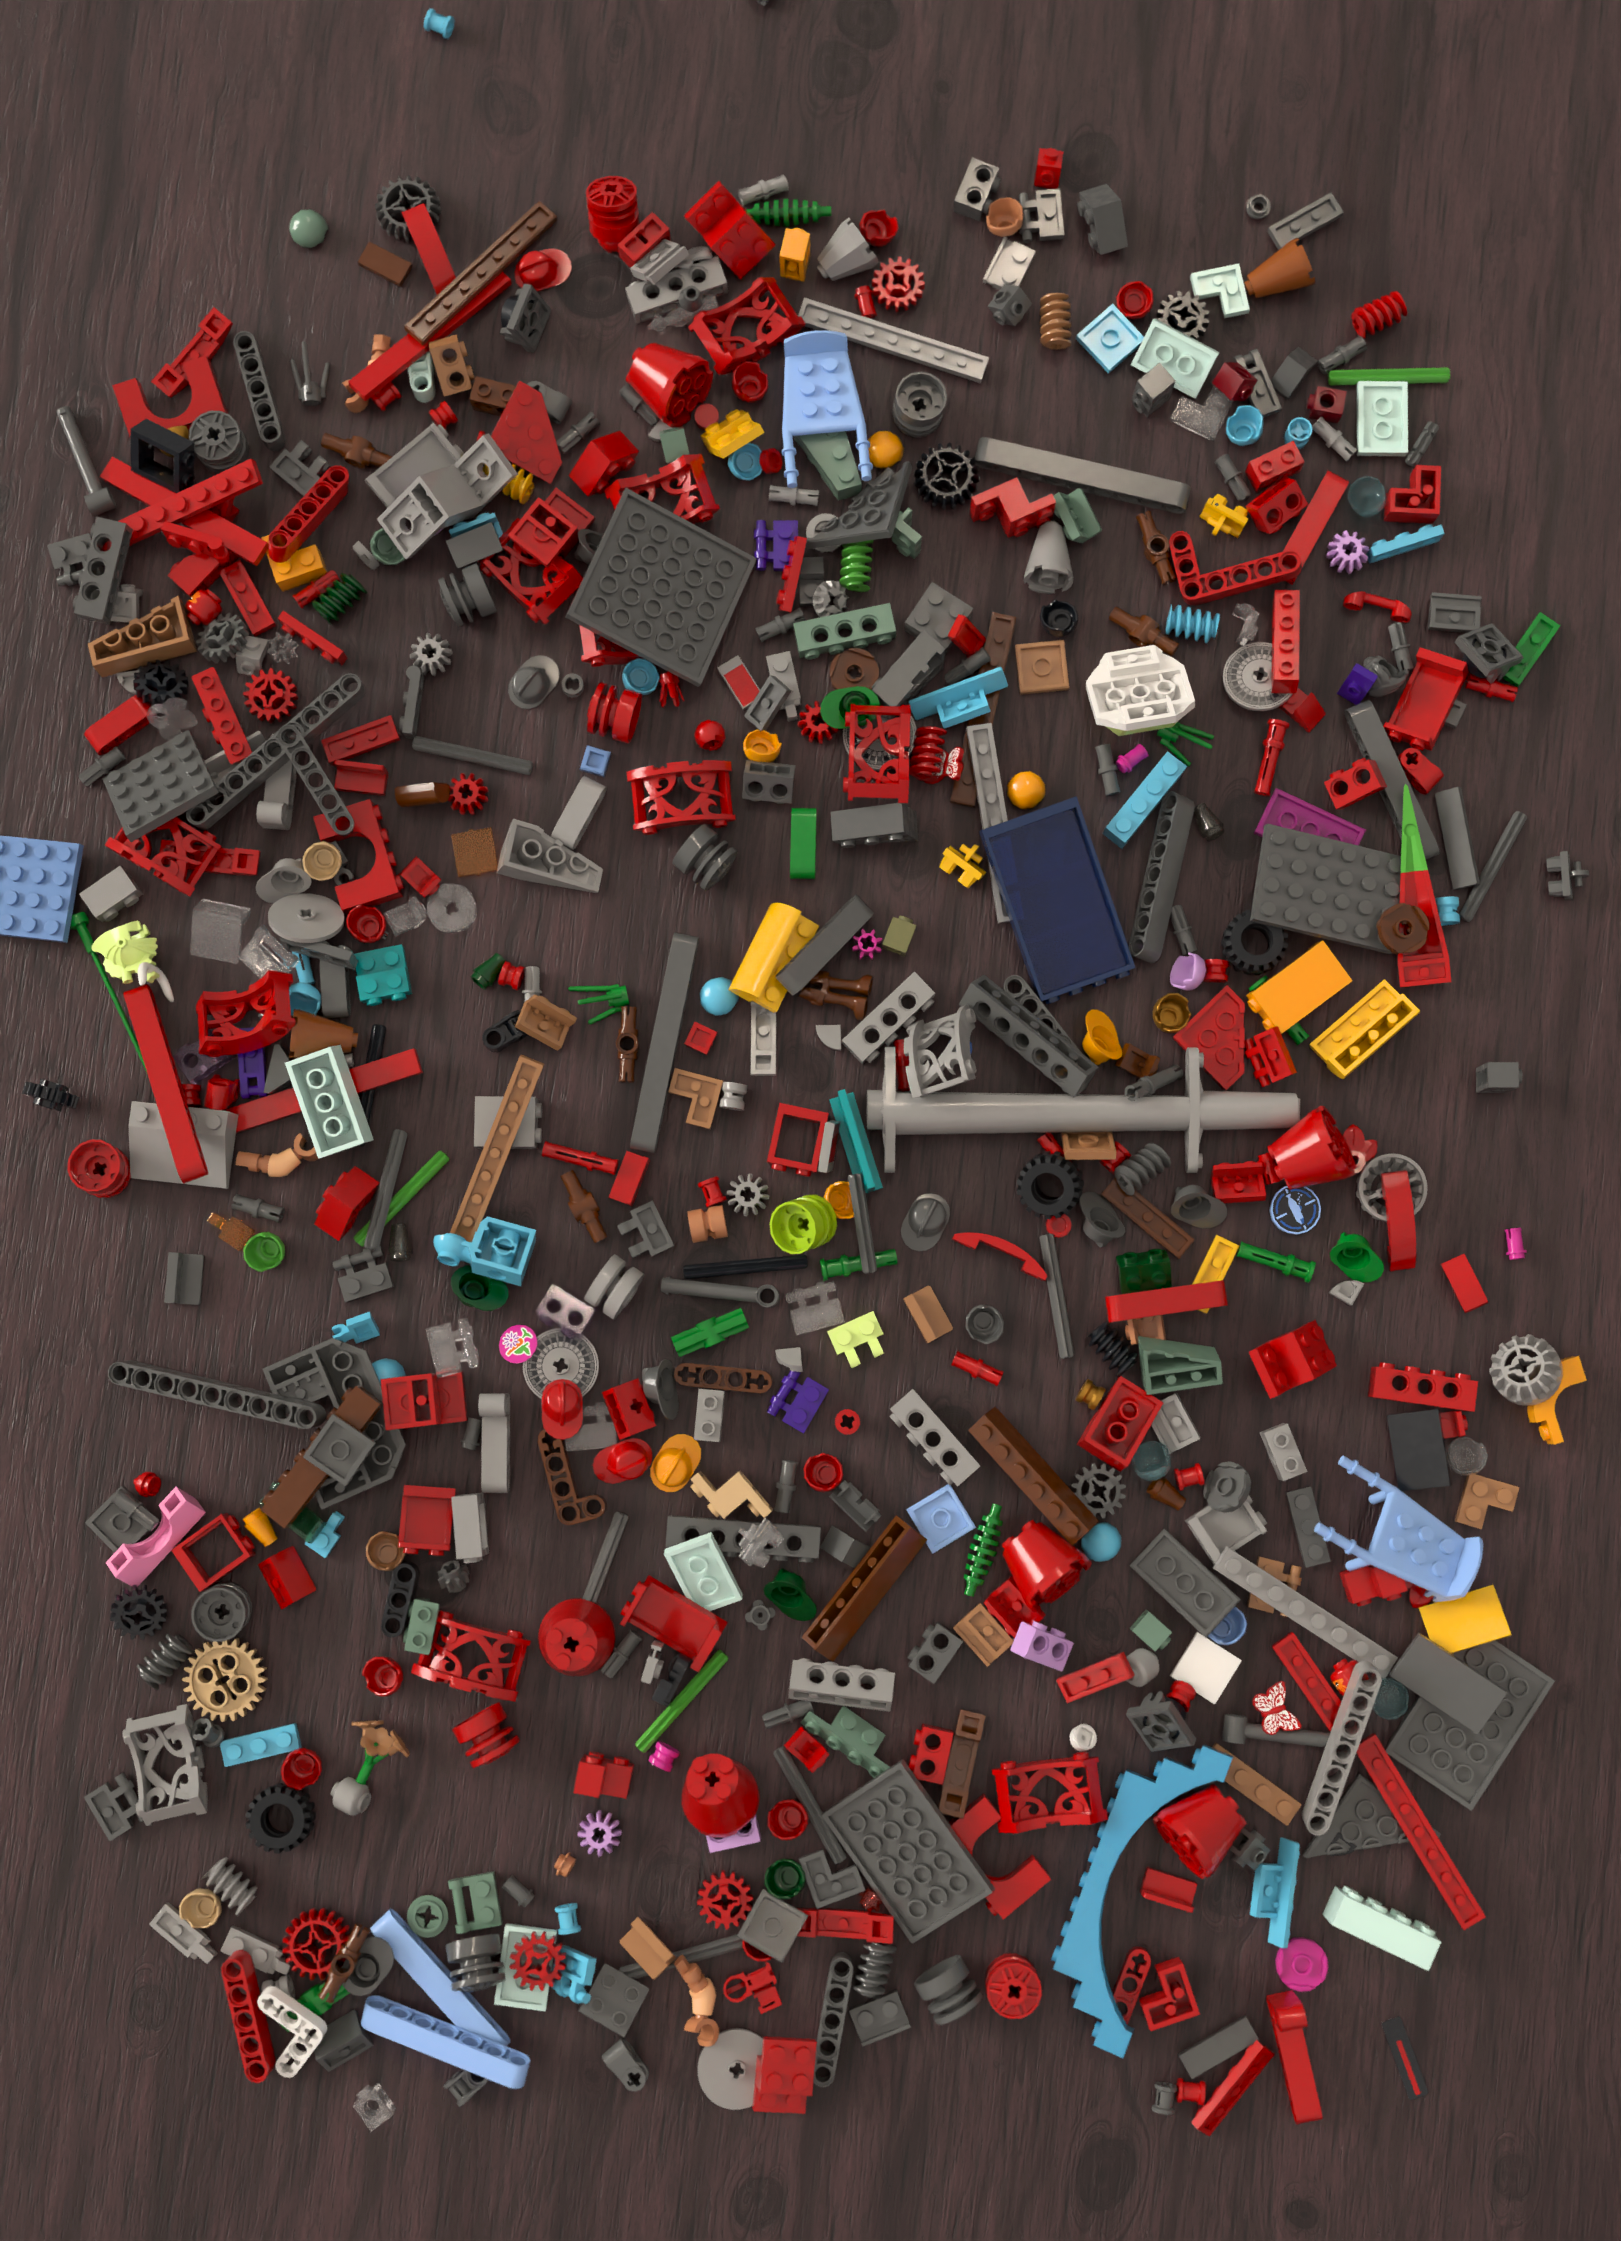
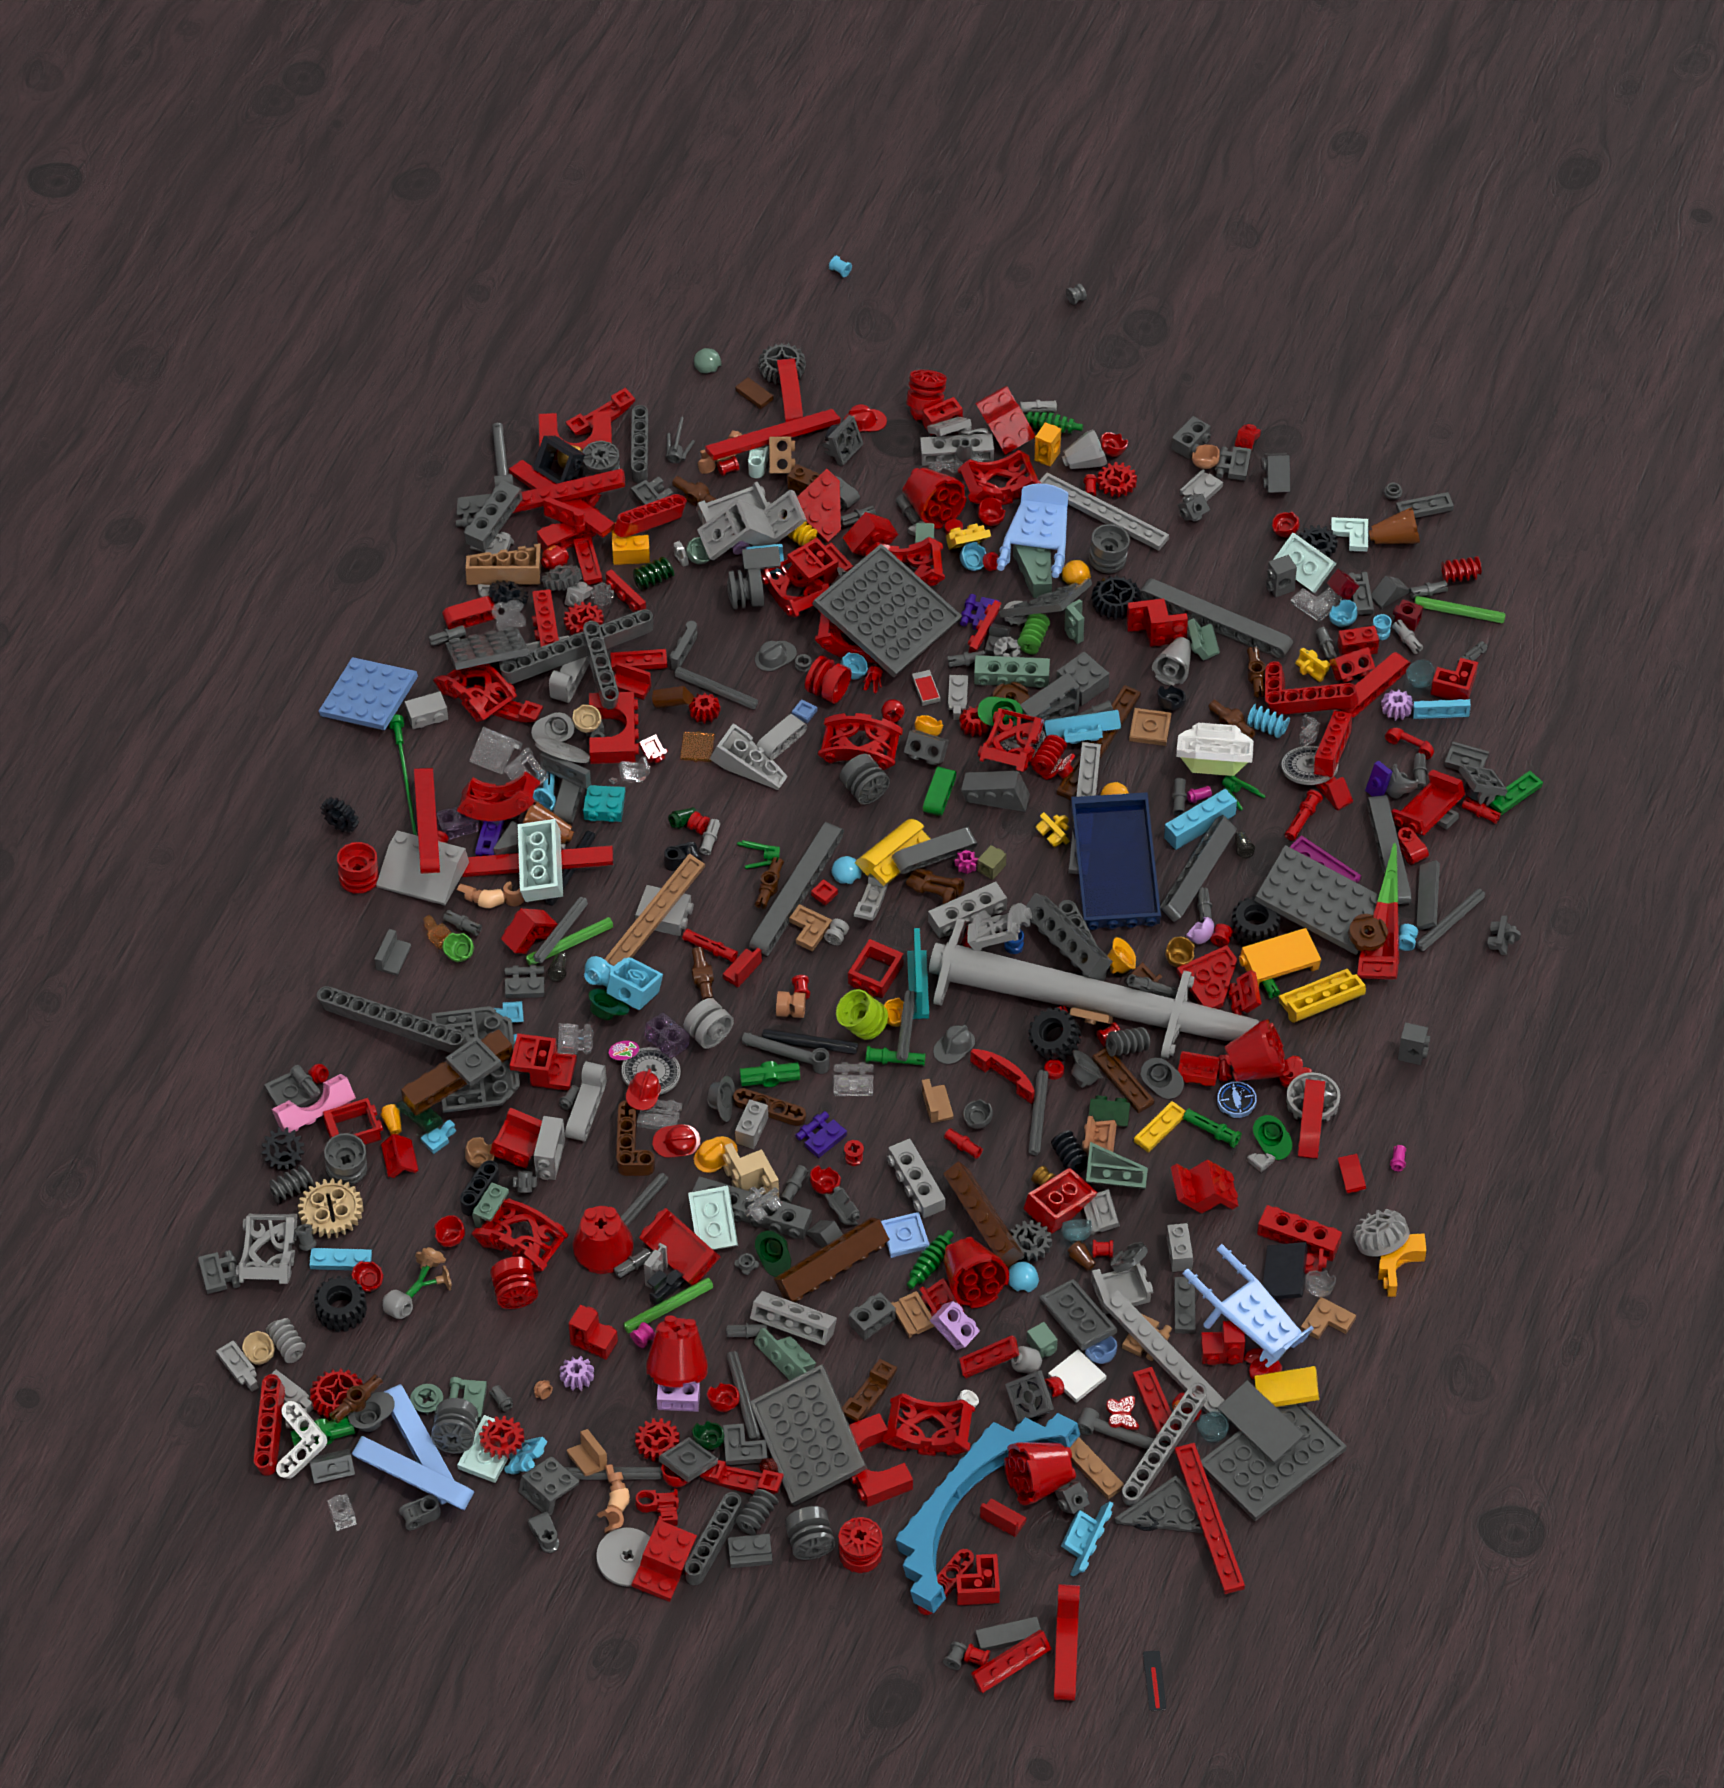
camera: 10 degrees right, 30 degrees down
(131, 955) = (430, 744): yellowish green helmet -> none
(221, 1092) = (464, 839): red piece -> none
(315, 588) = (629, 567): red axle -> none
(366, 924) = (603, 768): red hair -> none
(440, 657) = (708, 620): light grey gear -> none
(443, 415) = (767, 484): red wheel -> none
(465, 904) = (666, 766): clear plate -> none
(480, 273) = (820, 409): reddish brown tile -> none
(545, 1021) = (714, 851): medium nougat bracket -> none
(567, 1919) = (533, 1424): medium azure bush -> none
(628, 1421) = (693, 1104): red brick -> none
(651, 1229) = (748, 1001): dark grey plate -> none
(754, 1189) = (826, 994): light grey gear -> none
(767, 703) = (941, 700): dark grey plate -> none
(790, 1358) = (826, 1105): light grey tile -> none
(794, 495) = (1001, 586): light grey pin -> none
(807, 1749) = (752, 1355): red bracket -> none
(828, 1146) = (897, 976): light grey tile -> none
(830, 1035) = (920, 913): light grey tile -> none
(855, 1333) = (879, 1102): yellowish green plate -> none
(937, 1754) = (850, 1382): red brick -> none
(966, 636) = (1098, 688): red tile -> none
(1054, 321) = (1224, 523): medium nougat piece -> none
(1110, 338) = (1260, 543): plate -> none
(1166, 1301) = (1118, 1124): red beam -> none
(1302, 1964) = (1094, 1594): dark pink tile -> none
(1356, 788) = (1359, 841): red brick -> none
(1382, 418) = (1446, 632): light aqua plate -> none
(1382, 1928) = (1160, 1572): light aqua brick -> none

